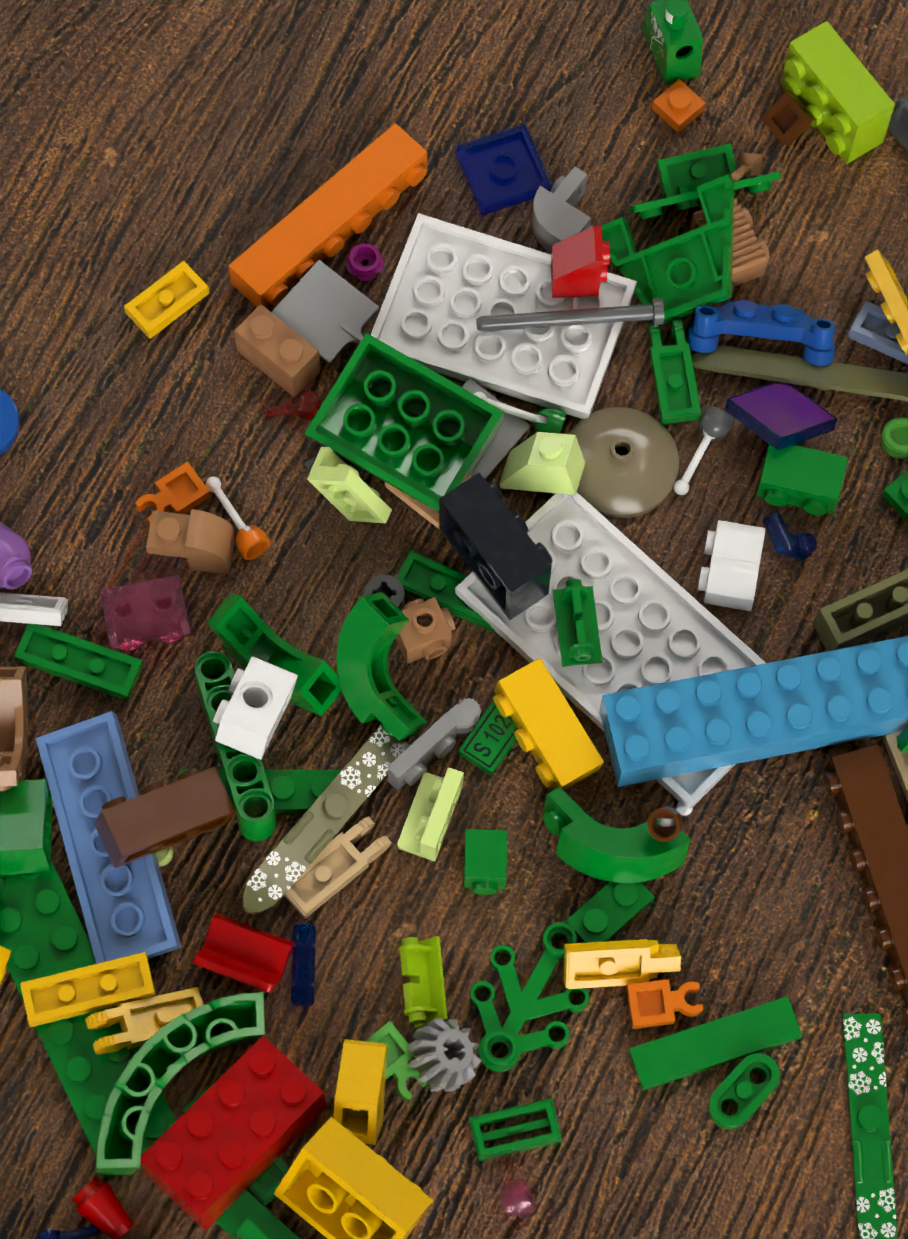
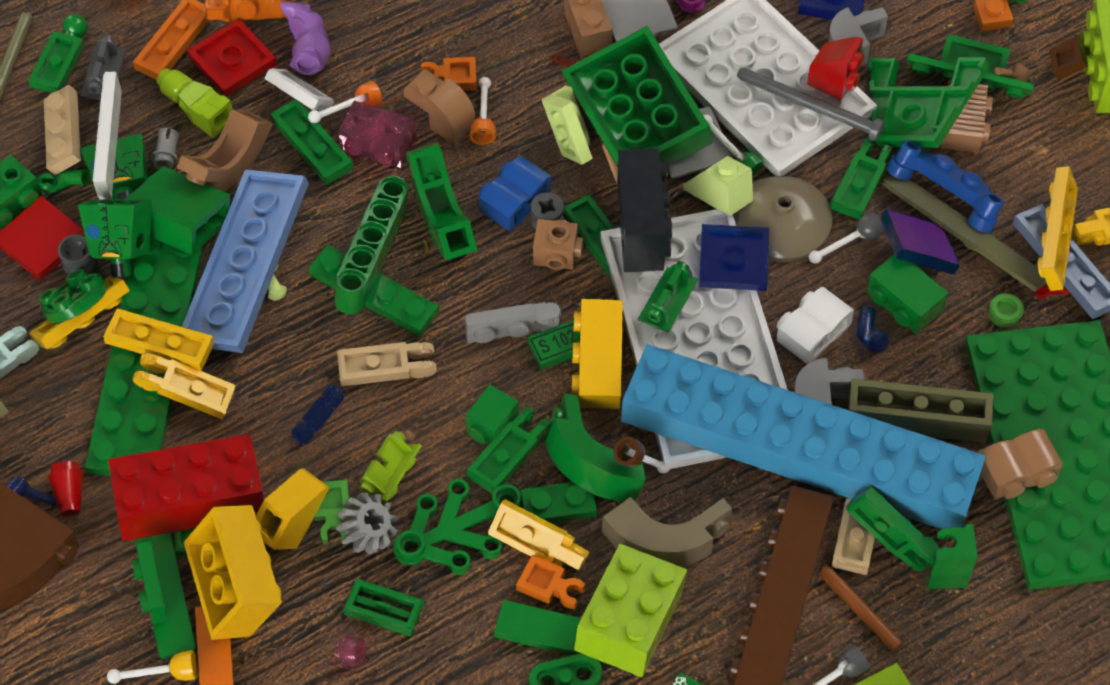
camera: 35 degrees right, 10 degrees down
(101, 574) = (366, 93): none -> hinge
(163, 815) = (287, 257): reddish brown brick -> none
(183, 1040) = (164, 411): green brick -> none
(244, 953) = (282, 382): red panel -> none
(249, 727) = (397, 220): white brick -> none
(321, 822) = (393, 326): olive piece -> none
(336, 589) = (510, 195): none -> blue brick
(364, 666) = (498, 240): green arch -> none
(431, 814) = (478, 367): yellowish green bracket -> none
(525, 889) = (508, 451): none -> green hinge
(610, 539) = (734, 257): none -> clear blue tile
(731, 898) = (676, 543): none -> dark tan arch
(765, 984) = (630, 610): none -> lime brick
(780, 629) = (825, 384): none -> light grey brick

